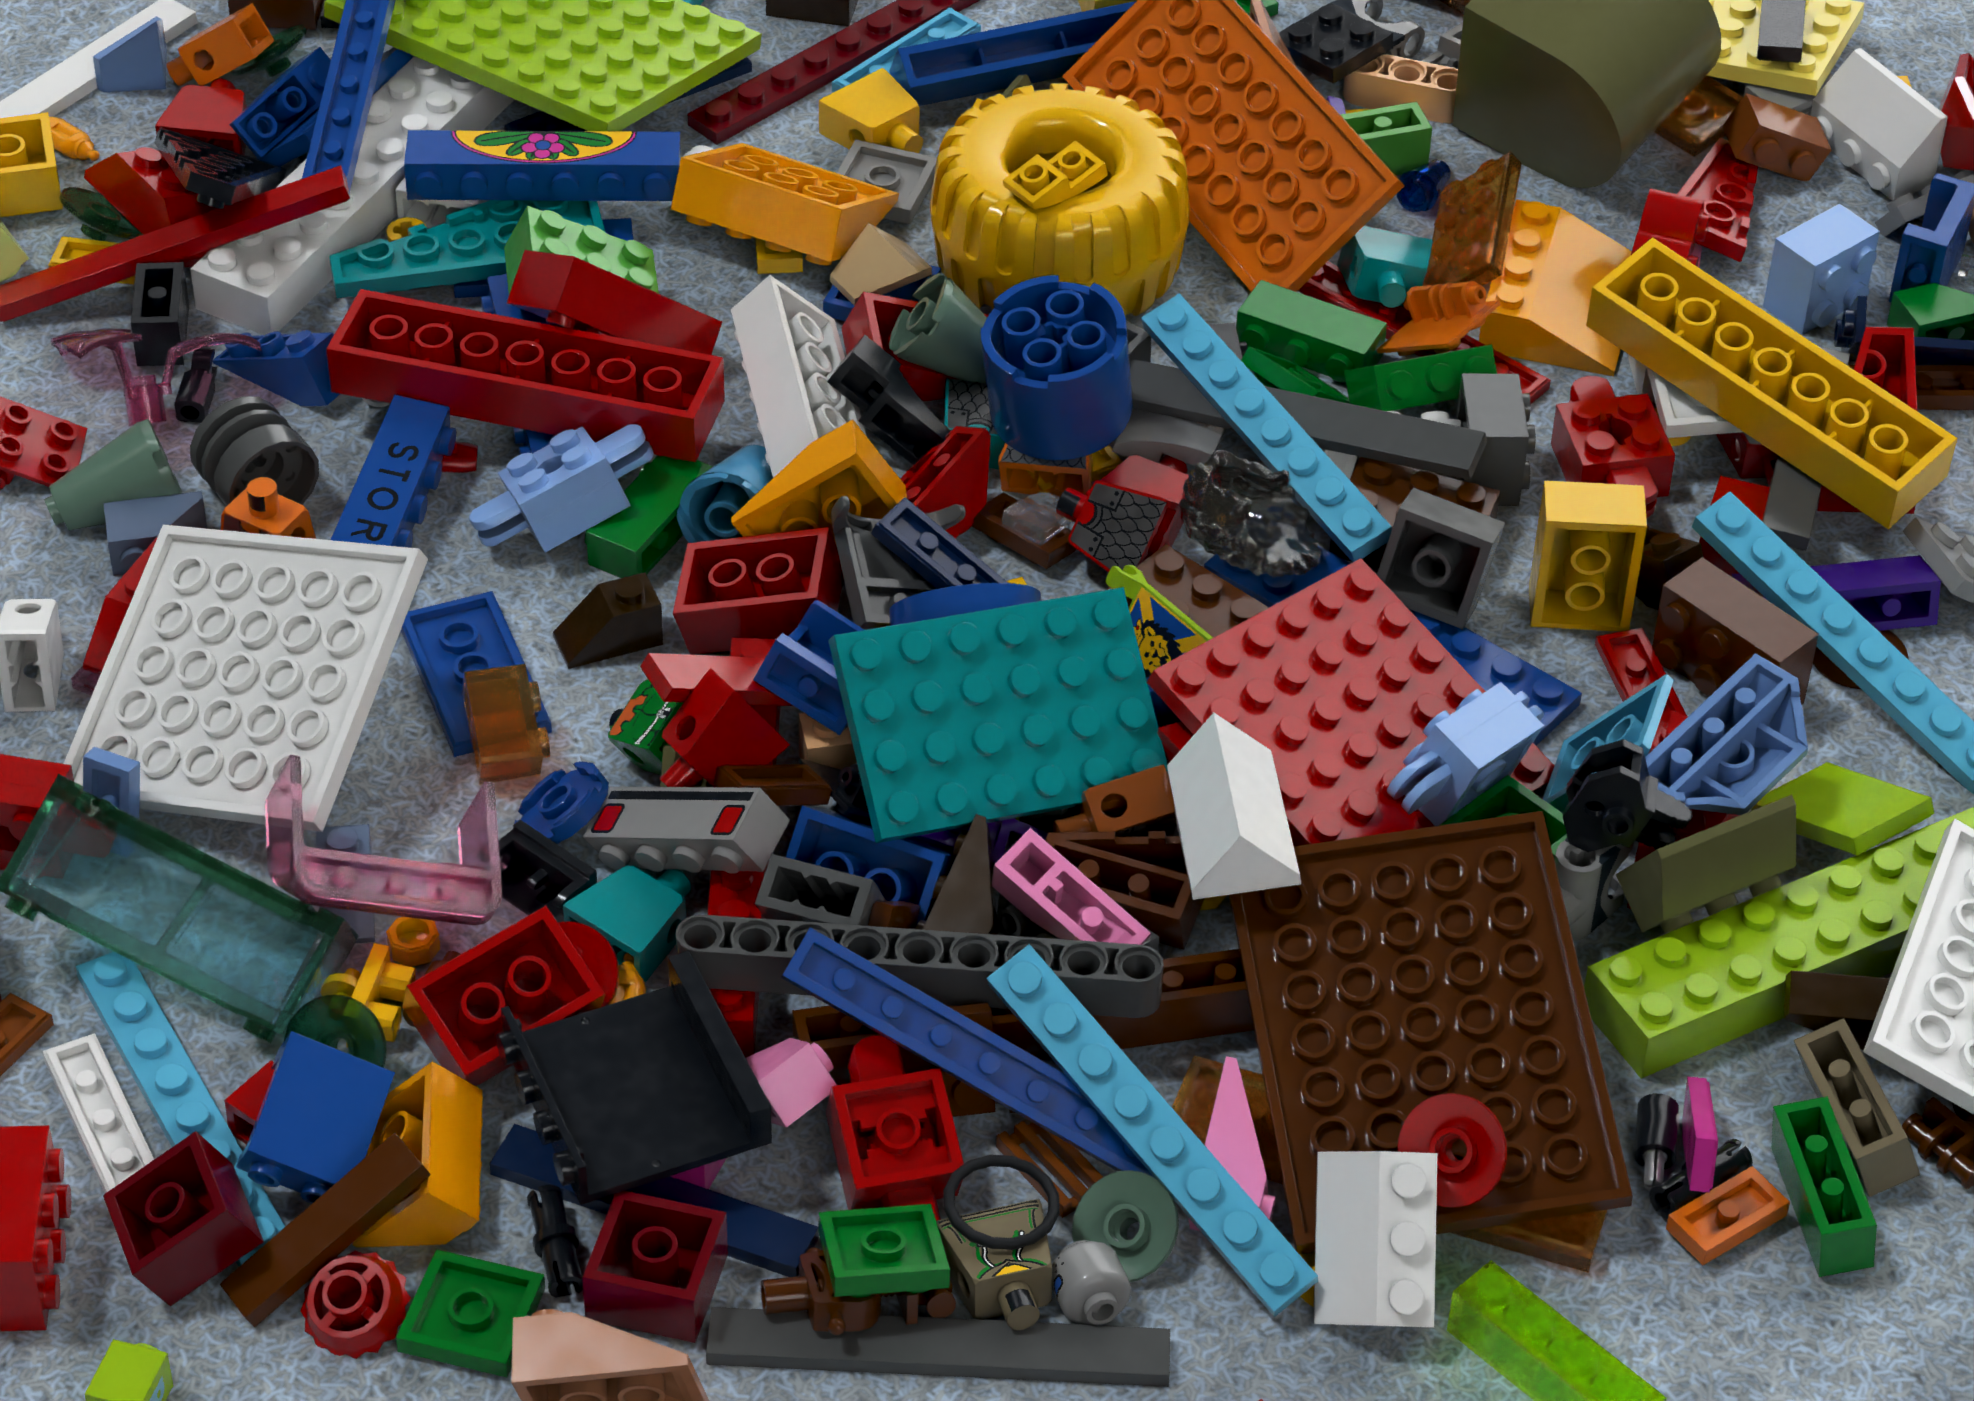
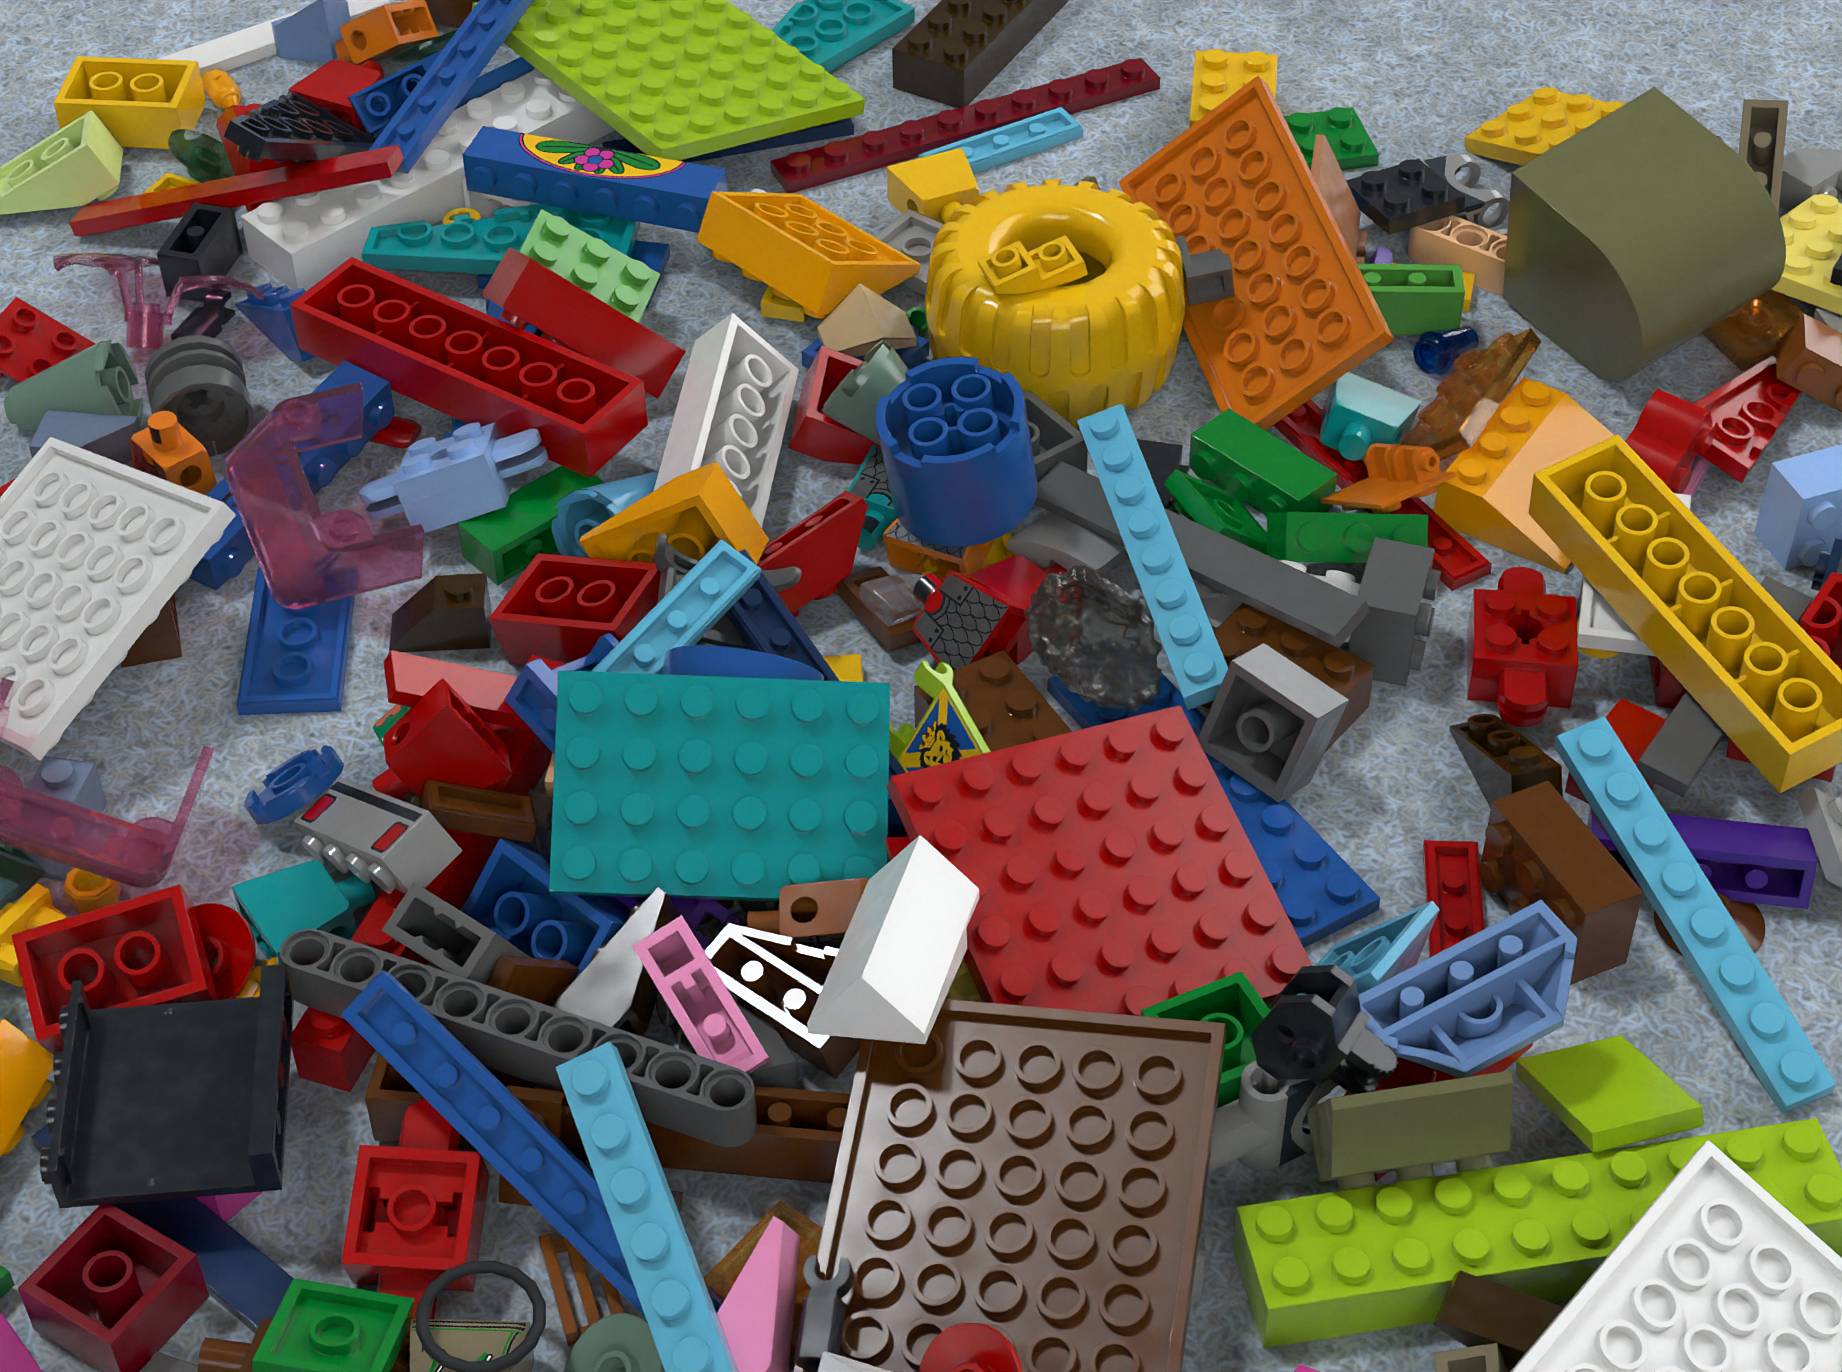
camera: 20 degrees right, 0 degrees up
(463, 585) = (300, 551): none -> clear pink windscreen
(503, 723) = (282, 692): clear orange brick -> none
(540, 872) = (237, 847): black hinge -> none
(555, 1241) = (43, 1234): black pin -> none
(792, 1078) = (332, 1124): bright pink slope -> none
(879, 568) = (684, 612): none -> medium azure tile
(889, 403) = (801, 463): black slope -> none
(919, 244) = (917, 318): none -> green hand
(997, 56) = (1065, 154): blue brick -> none
(1203, 154) = (1205, 274): none -> dark grey panel
(1295, 1128) = (822, 1313): none -> bar
(1466, 752) = (1192, 937): light blue brick -> none
(1587, 555) = (1430, 752): yellow brick -> none

